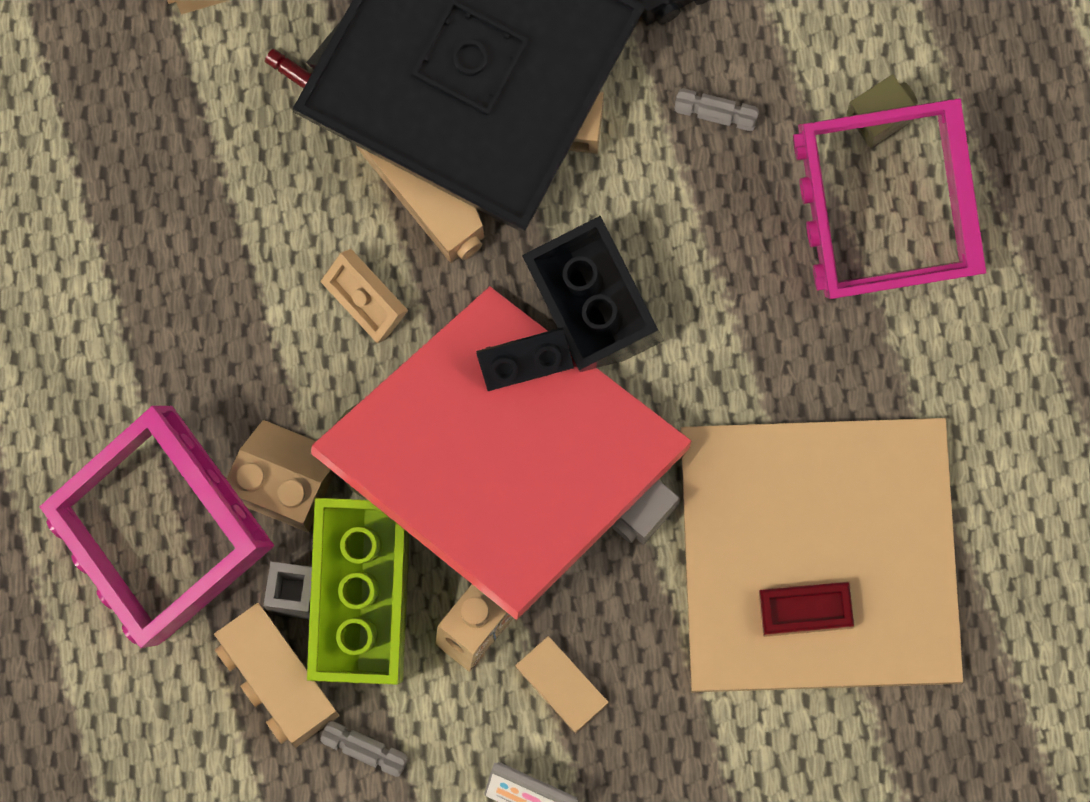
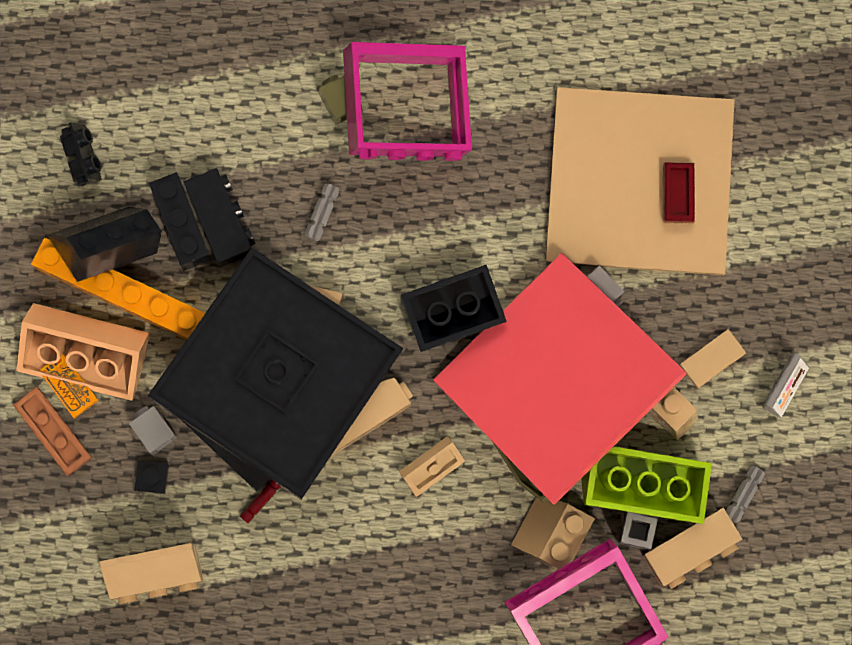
camera: 90 degrees left, 5 degrees up
(525, 359) = (497, 345): black hinge -> none

